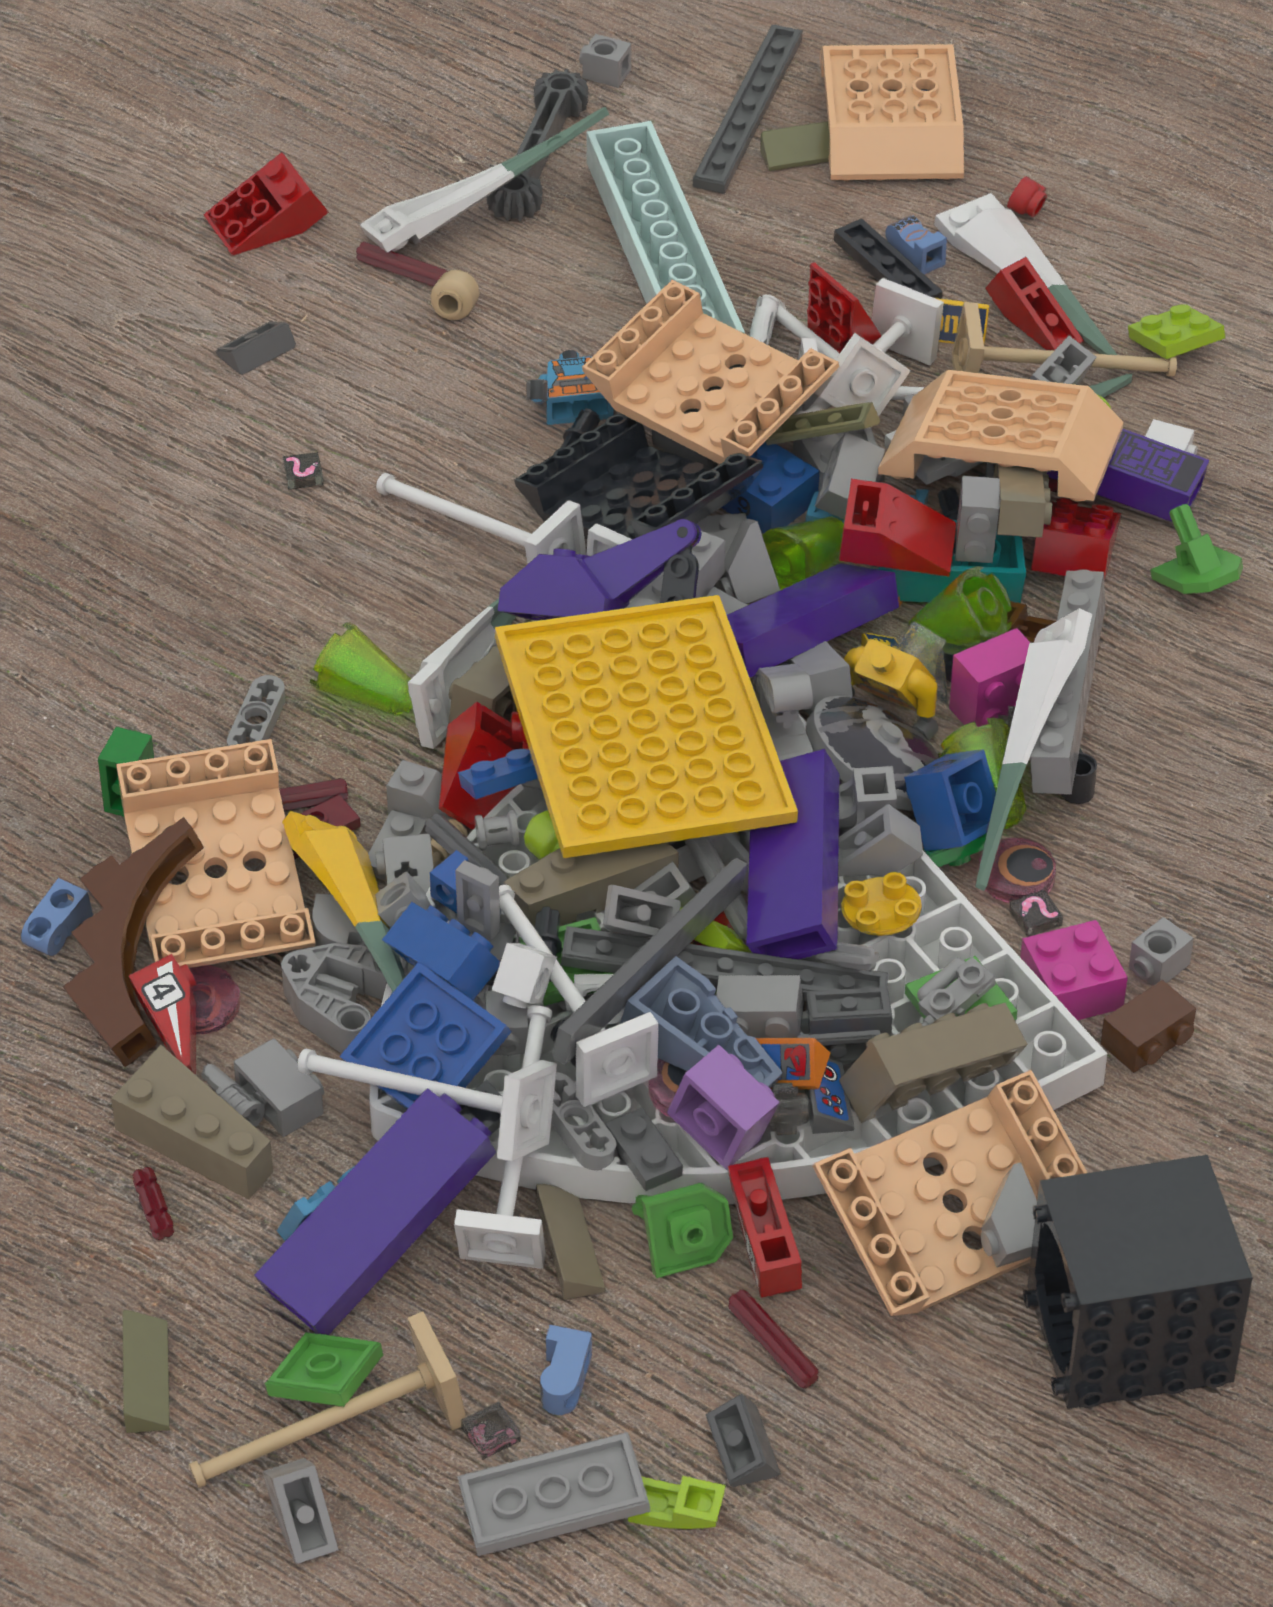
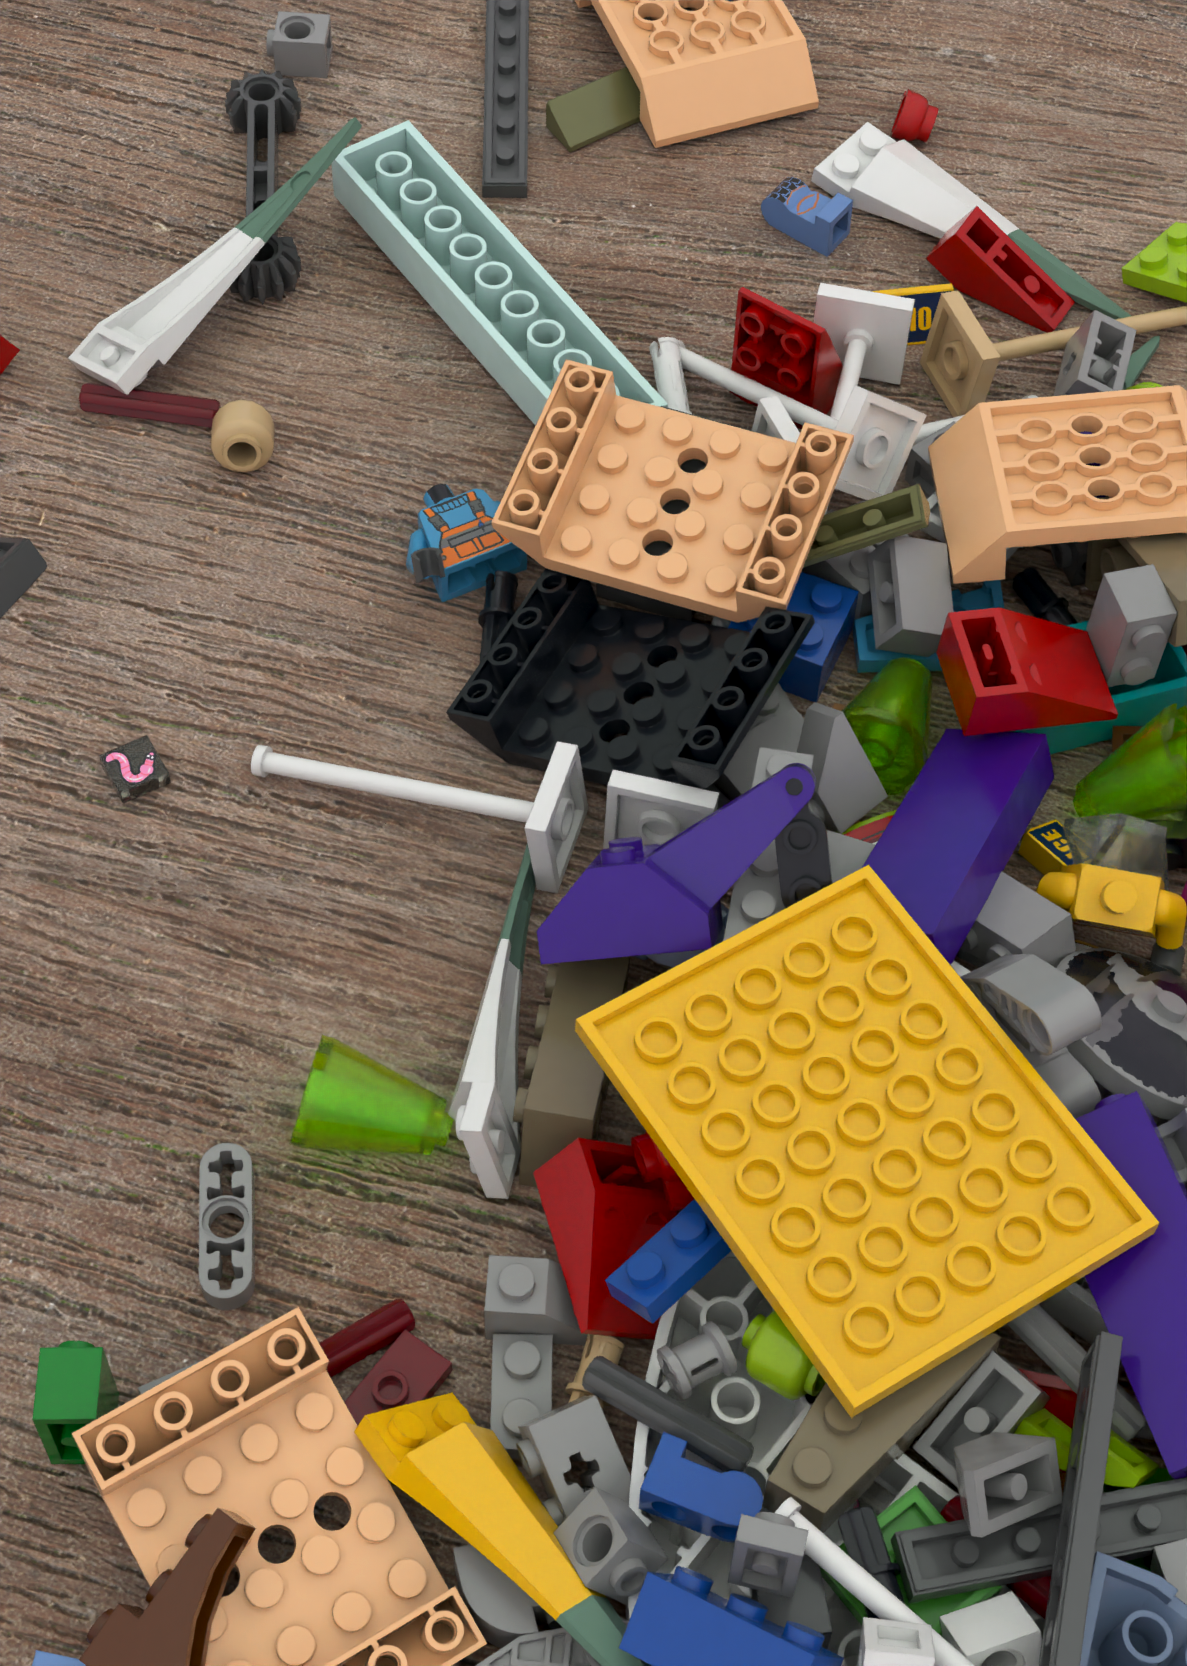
camera: 20 degrees left, 10 degrees up
(881, 258) = (780, 249): black plate -> none

